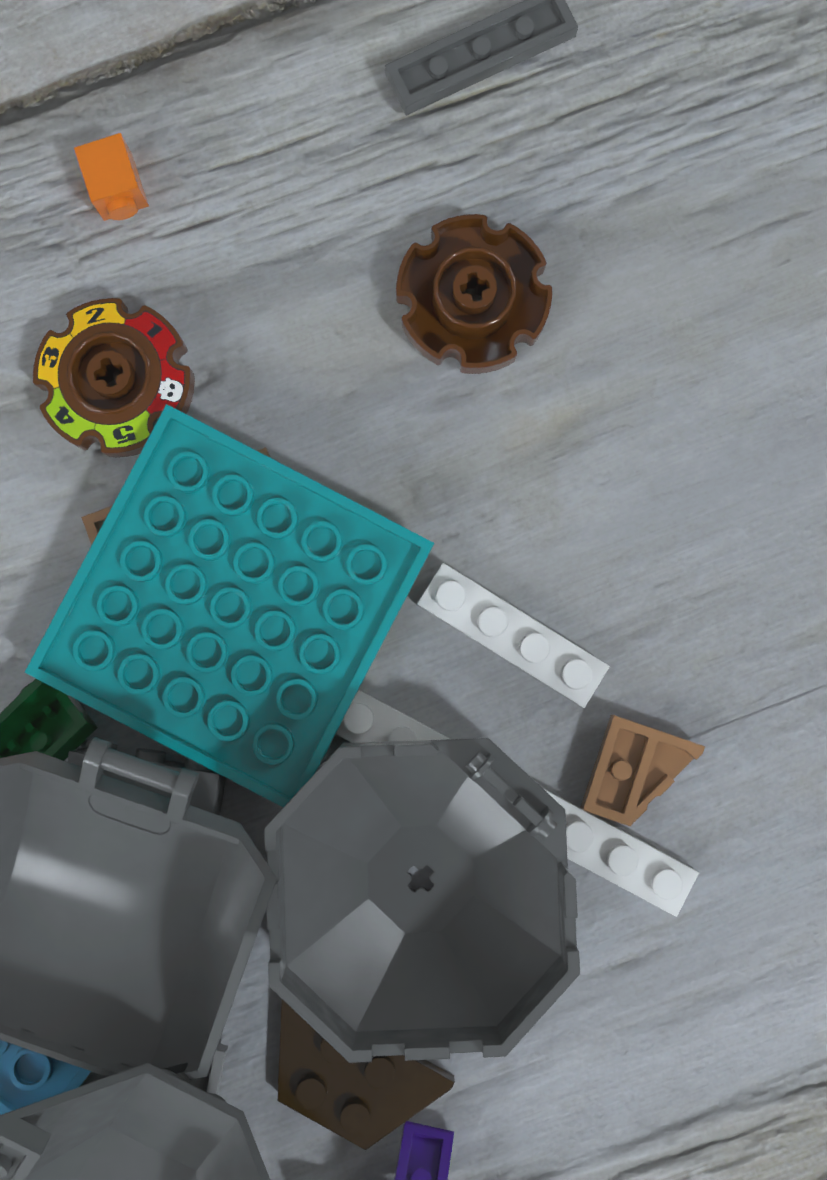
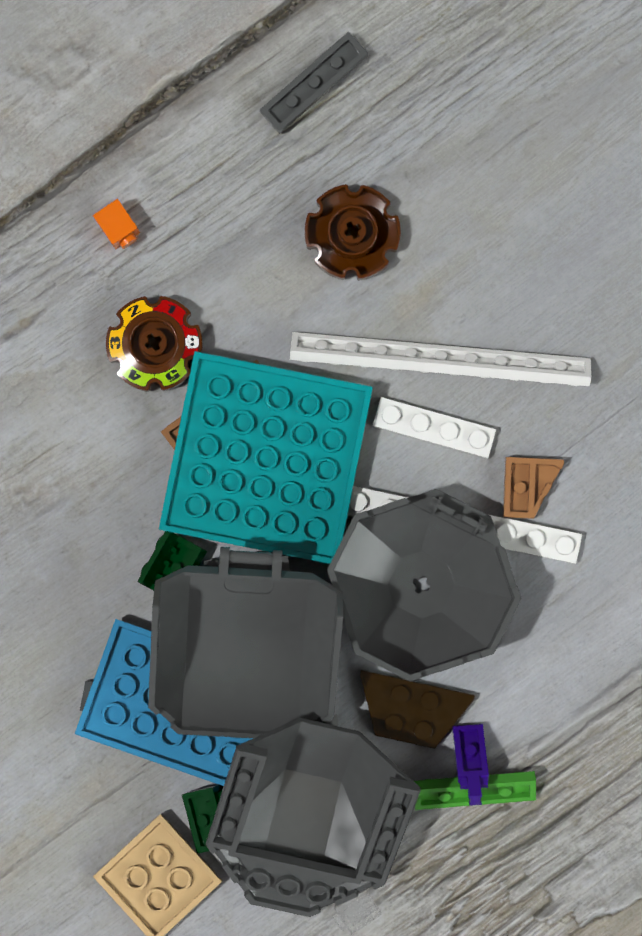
camera: 15 degrees left, 0 degrees up
(556, 531) = (440, 359): none -> white plate

